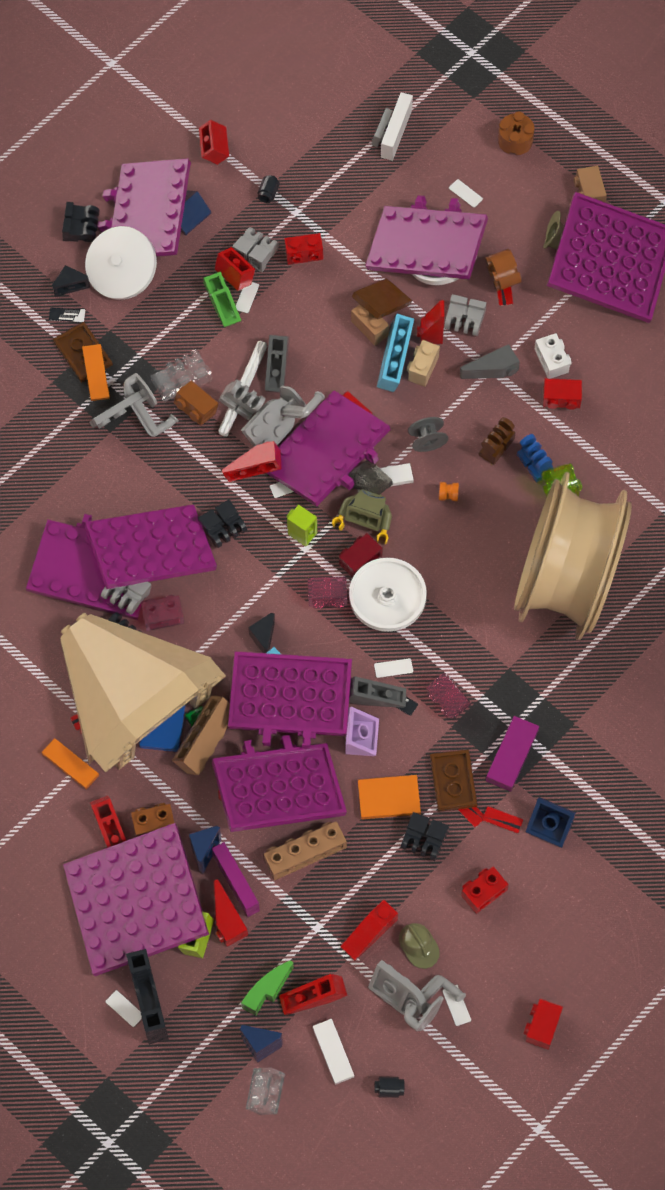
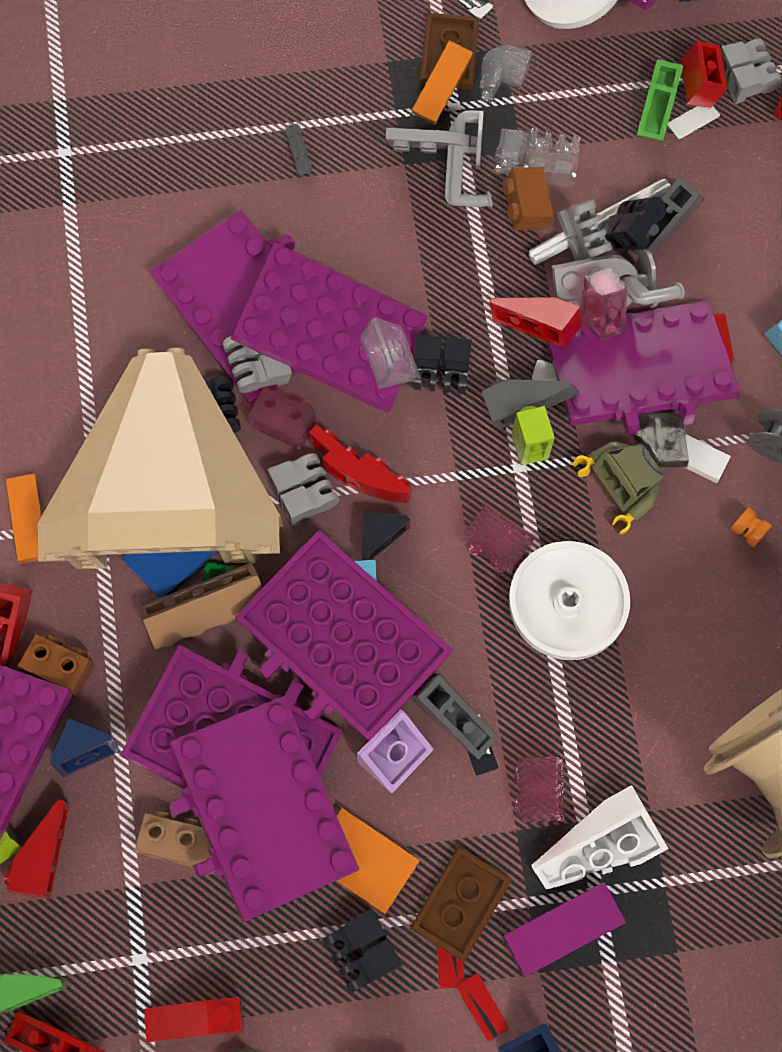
camera: 35 degrees right, 5 degrees up
(46, 465) = (298, 149): none -> dark grey axle
(122, 338) = (505, 65): none -> clear brick
(193, 538) = (388, 353): none -> clear slope
(195, 639) = (288, 486): none -> light grey legs
(231, 610) = (365, 475): none -> red slope
(235, 879) = (87, 818): magenta piece -> none
(264, 376) = (632, 223): none -> black legs
(275, 514) = (511, 395): none -> dark grey slope
(285, 430) = (604, 304): none -> clear pink brick
(320, 805) = (261, 809): none -> magenta hinge
(360, 553) = (577, 523): dark red brick -> none
(393, 668) = (504, 698): white sticker -> none
(499, 693) = (608, 837): none -> white wedge

